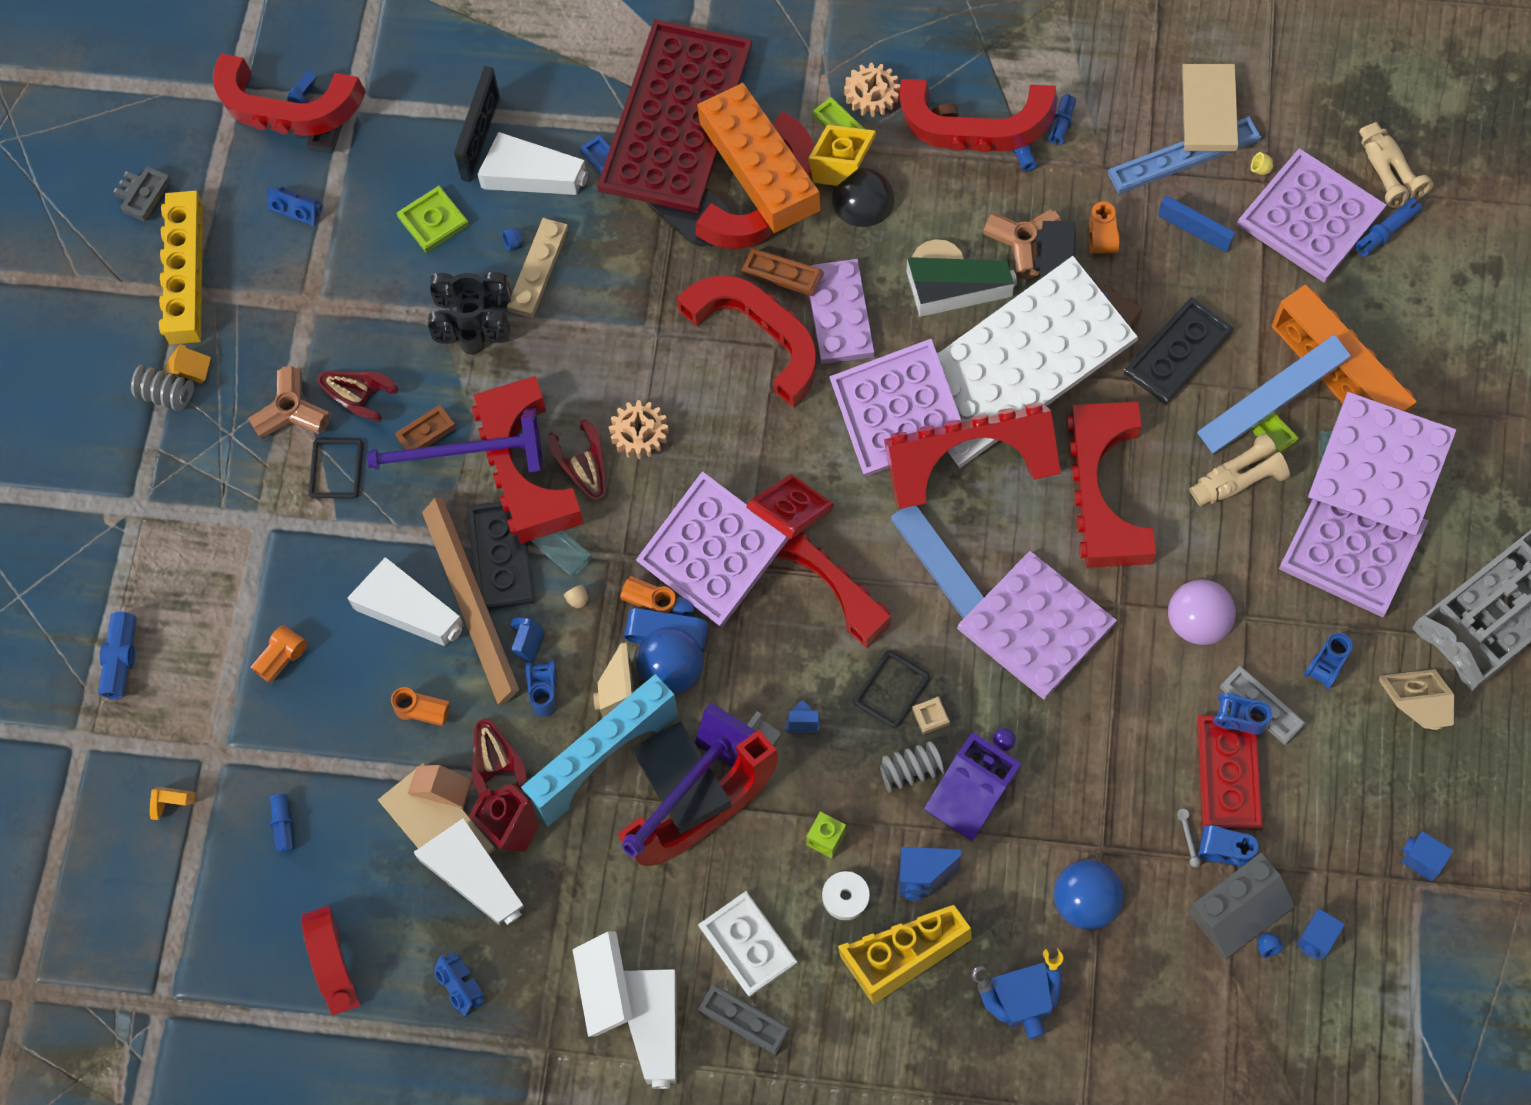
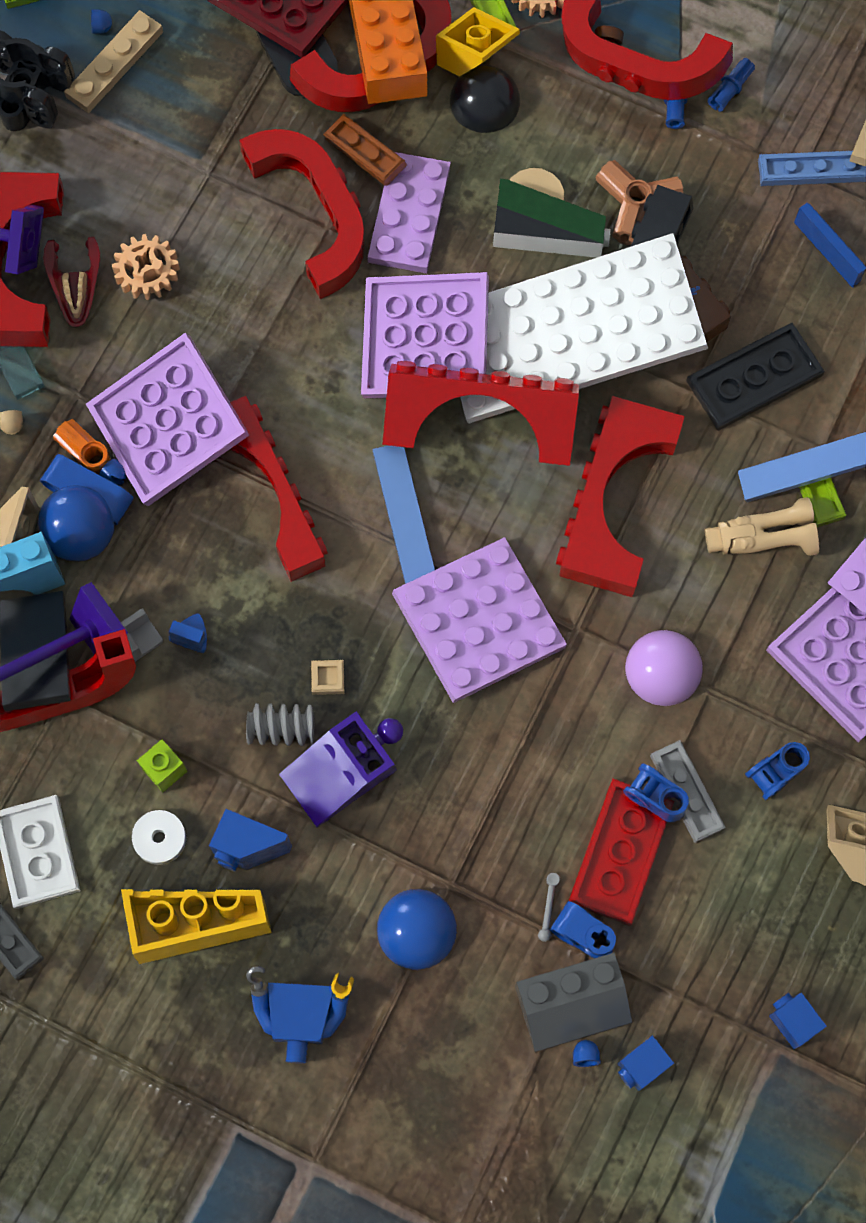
camera: 15 degrees right, 5 degrees up
(790, 506) = (266, 402): red tile -> none
(911, 701) = (341, 633): black piece -> none
(1103, 229) = (725, 220): orange piece -> none

